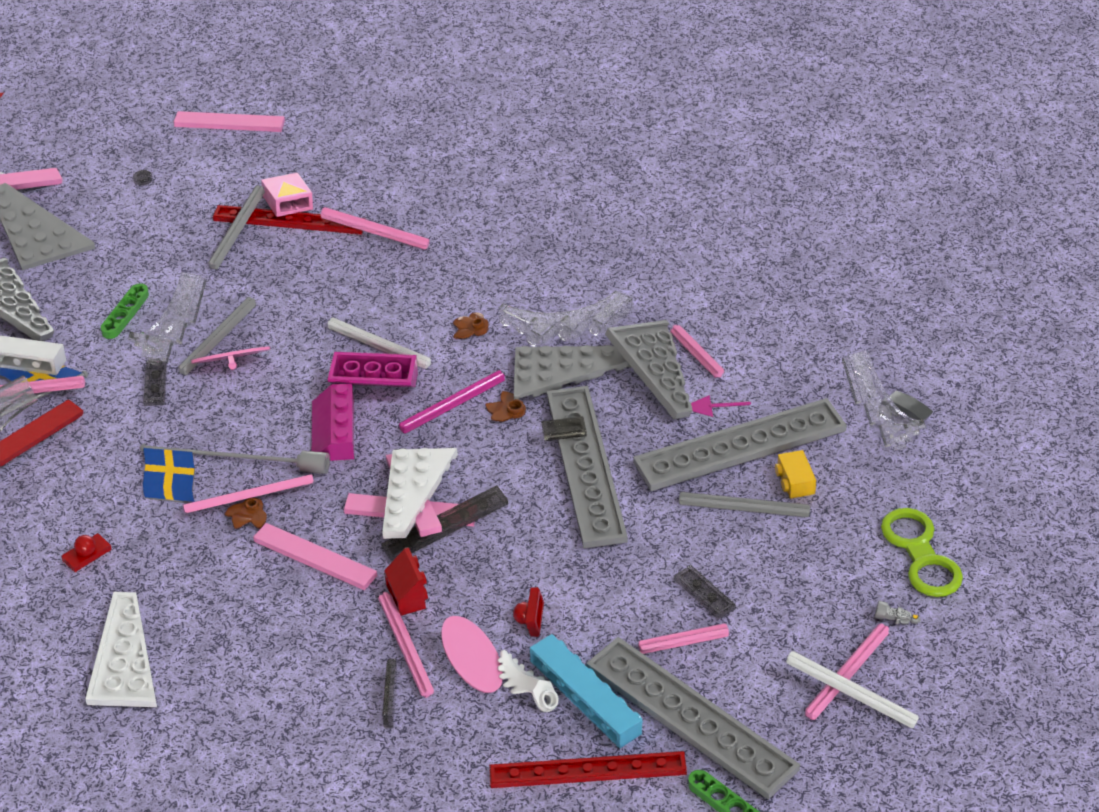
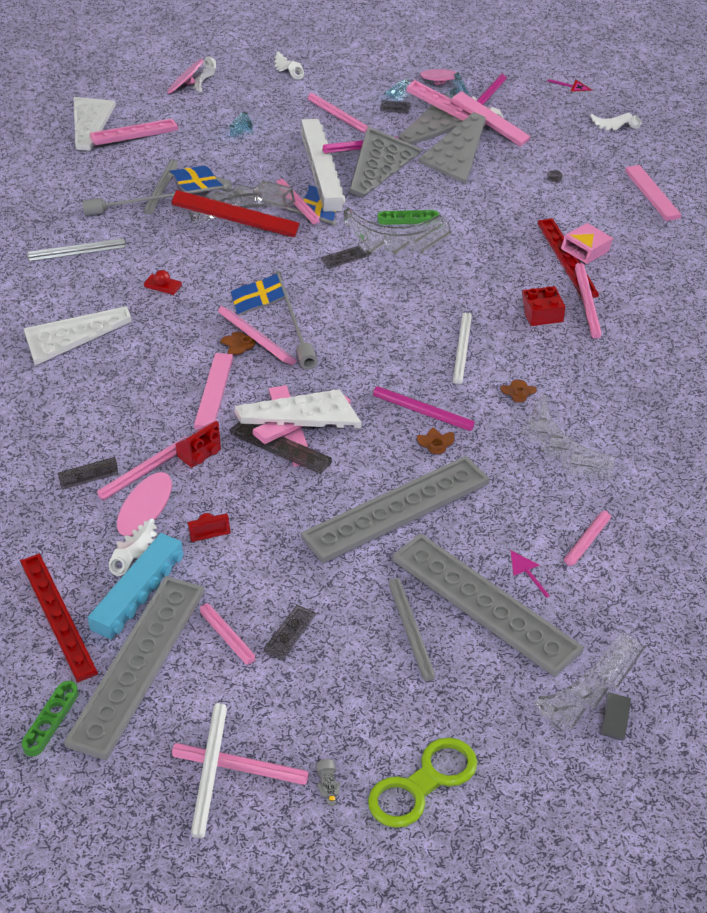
camera: 65 degrees right, 0 degrees up
(85, 97) = (617, 122): none -> white plant
(217, 335) = (413, 266): light grey axle -> none
(230, 356) = (387, 285): bright pink shield -> none
(236, 227) = (530, 233): light grey axle -> none
(334, 422) = (356, 355): dark pink slope -> none
(363, 260) = (543, 306): none -> red slope
(373, 369) = (417, 350): dark pink slope -> none
(551, 367) = (509, 458): light grey wing -> none
(563, 428) = (424, 478): clear smoke tile -> none
(653, 357) = (545, 509): light grey wing -> none
(795, 474) = (467, 652): yellow brick -> none

